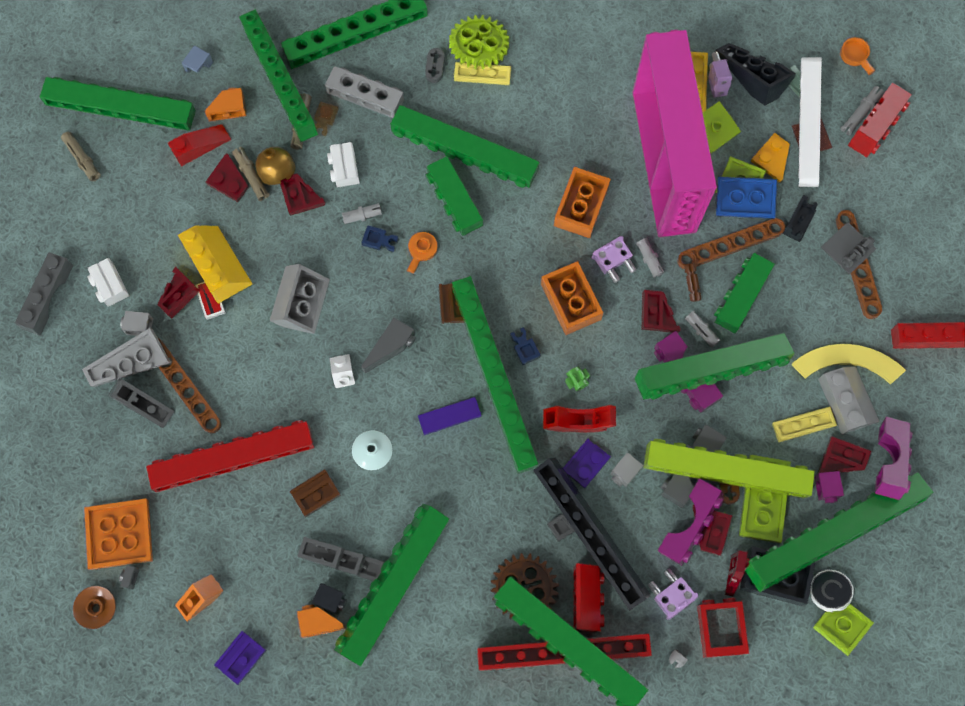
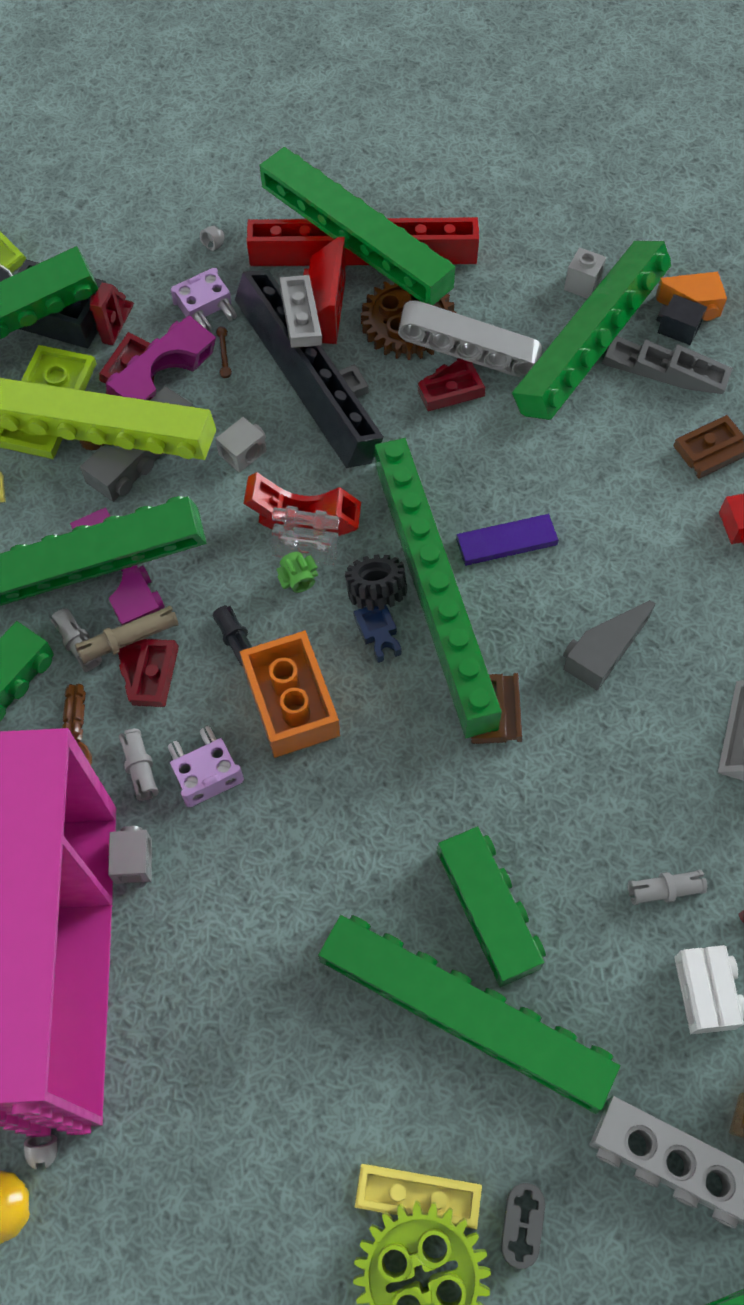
camera: 175 degrees left, 10 degrees down
(342, 371) = (686, 614): white bracket -> none
(376, 238) = (637, 834): dark blue plate -> none
(376, 459) = (625, 513): light aqua dish -> none
(397, 635) = (584, 273): none -> light grey brick
(422, 248) = (550, 814): orange piece -> none
(480, 560) = (468, 339): none -> light grey beam
(490, 533) = (451, 385): none -> dark red wing
(537, 381) = (376, 582): none -> black tyre
(567, 400) = (314, 542): none -> clear plate
(581, 202) = (245, 868): orange brick -> none
(586, 463) = (300, 463): dark purple plate -> none
(600, 562) = (300, 311): none -> light grey plate
(609, 337) = (233, 633): none -> black axle
(644, 207) = (130, 855): none -> light grey brick
(647, 536) = (225, 371): none -> reddish brown hinge
(678, 323) = (112, 640): none -> dark tan pin
(704, 632) = (146, 238): red window -> none

